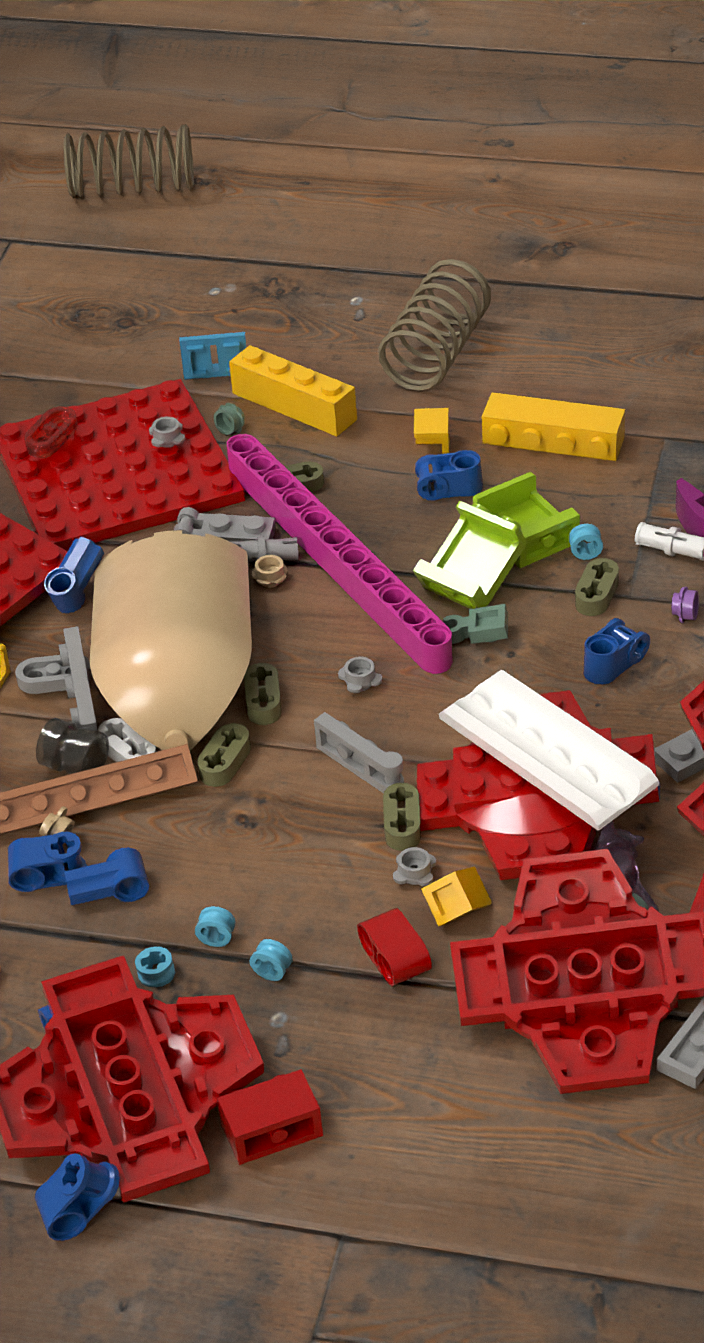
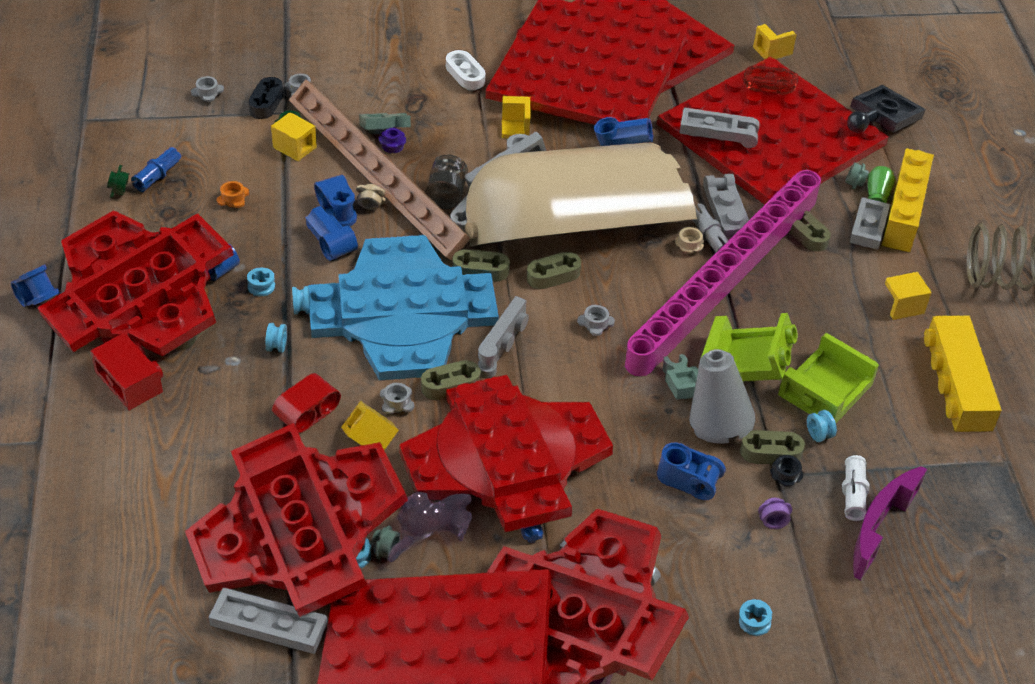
camera: 65 degrees right, 5 degrees up
(109, 492) = (720, 126): none -> light grey plate
(141, 364) = (885, 108): none -> black plate
(166, 432) = (806, 138): light grey plate -> none
(197, 354) = (919, 137): dark azure piece -> none
(258, 406) = (880, 183): none -> bright green cone
(259, 837) = (402, 306): none -> dark azure plate
(310, 430) = (869, 223): none -> light grey plate
(452, 475) = (858, 319): blue piece -> none
(541, 595) = (720, 400): none -> light grey cone
(551, 749) = (506, 434): white plate -> none
(633, 582) = (787, 470): none -> black plate

